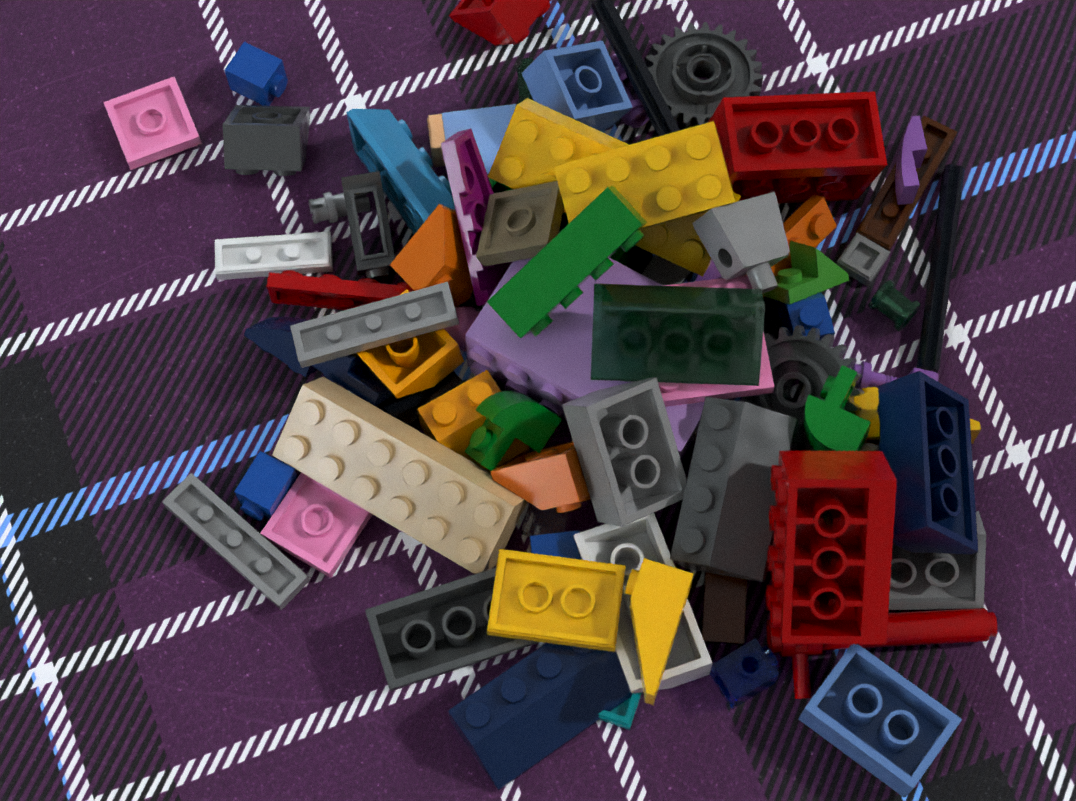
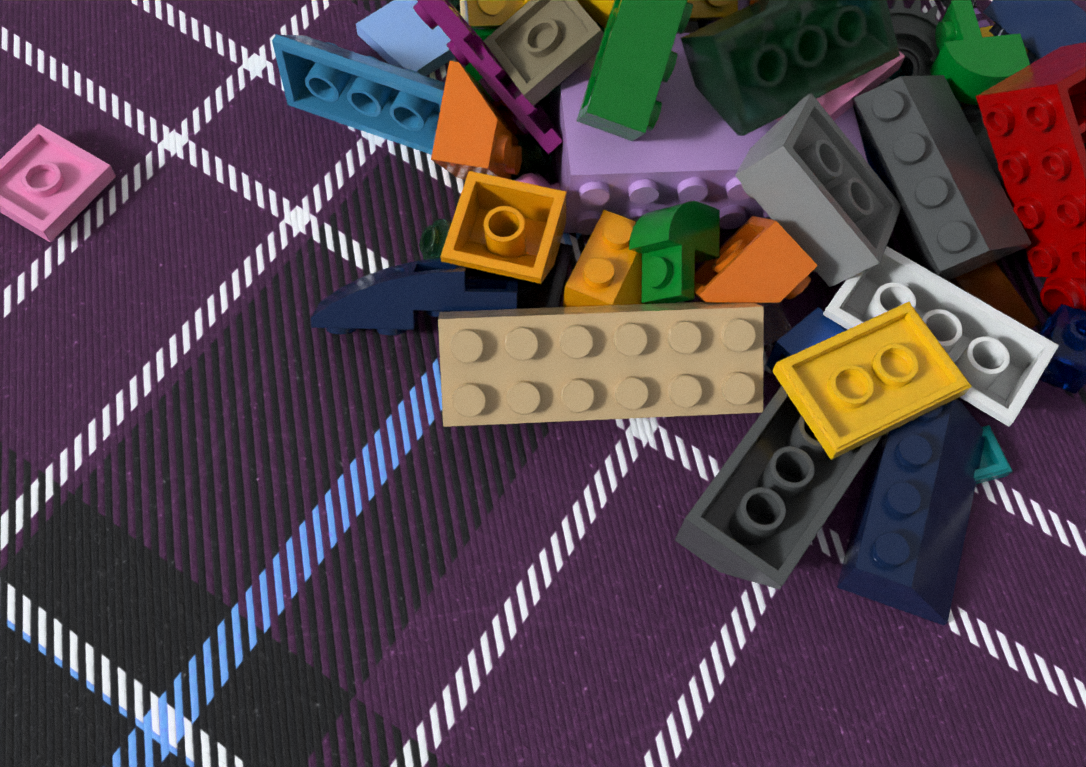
camera: 40 degrees left, 5 degrees down
(236, 541) = (463, 547): light grey plate -> none
(256, 74) = (132, 80): blue brick -> none
(264, 486) = (457, 468): blue brick -> none
(266, 139) = (191, 133): dark grey slope -> none
(275, 253) = (277, 241): white tile -> none
(315, 525) = (540, 473): bright pink plate -> none
(328, 290) = (376, 235): red plate -> none
(334, 206) = (309, 159): light grey pin -> none
(373, 265) = (384, 190): dark grey window -> none
(374, 324) = (466, 218): light grey plate -> none
(436, 137) = (370, 40): light nougat tile -> none
(656, 610) = (989, 334): yellow slope -> none

